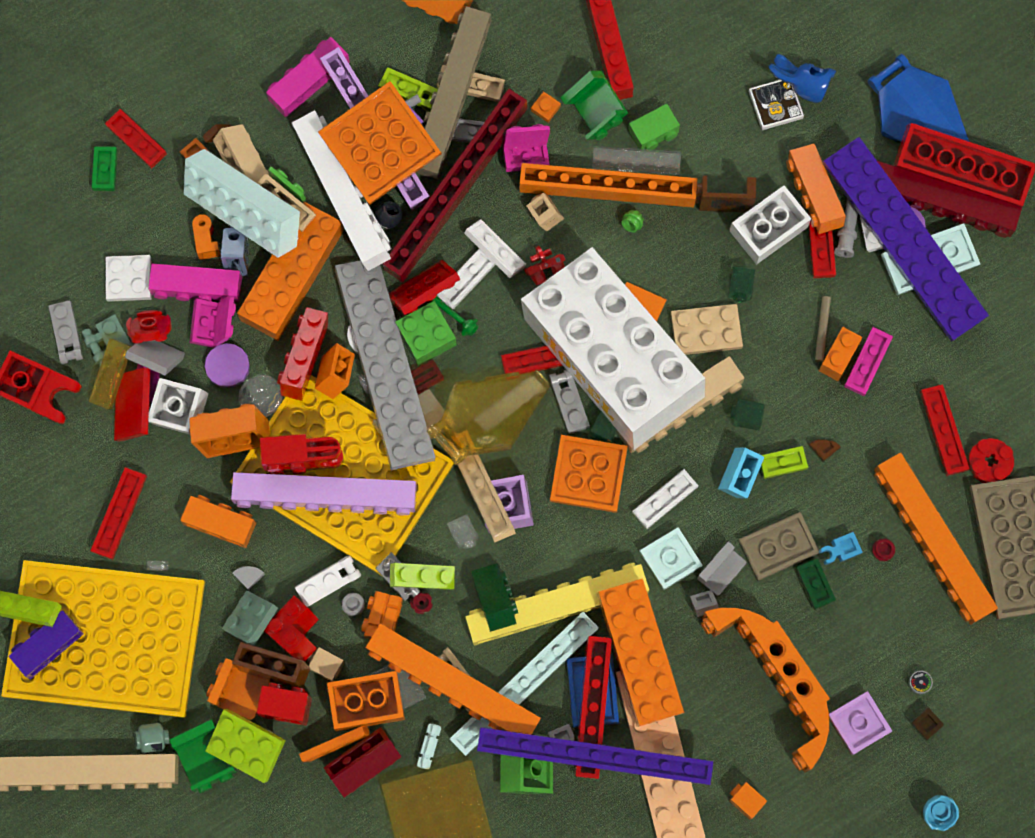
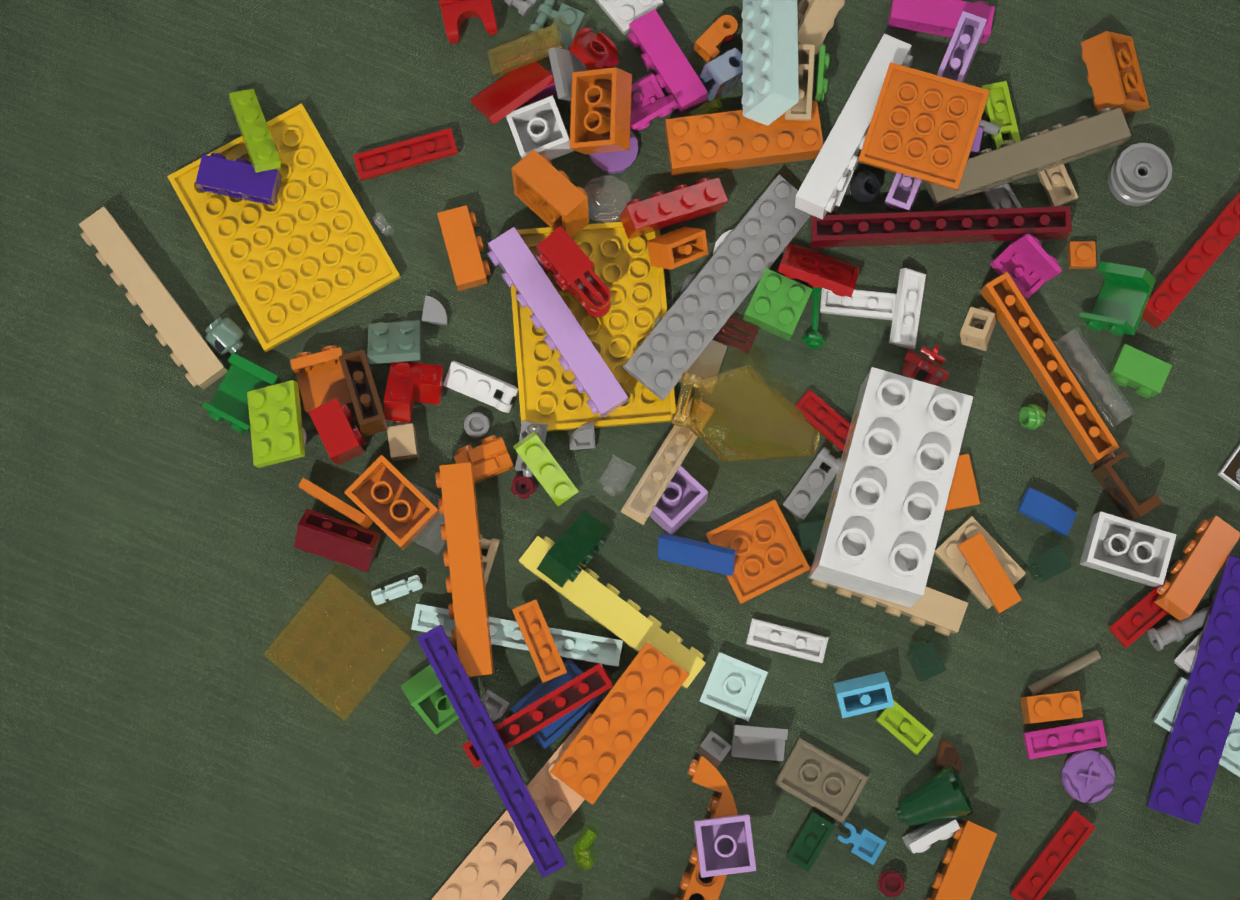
camera: 50 degrees right, 5 degrees up
(197, 352) = (600, 111): none -> orange brick
(249, 282) = (706, 108): none -> clear neon green bar
(418, 535) = (583, 437): none -> light grey tile
(520, 28) = (1139, 174): none -> light grey wheel
(541, 669) = (539, 641): none -> orange plate
(560, 515) = (696, 554): none -> blue tile
(704, 258) = (1047, 510): none -> blue slope
(708, 747) = (582, 852): none -> clear neon green arm
(719, 327) = (989, 573): none -> orange tile
(778, 638) = (724, 845): none -> lavender brick
(848, 477) = (935, 800): none -> dark green cone
(868, 496) = (923, 837): none -> white plate
(904, 365) = (1087, 776): none -> medium lavender tile

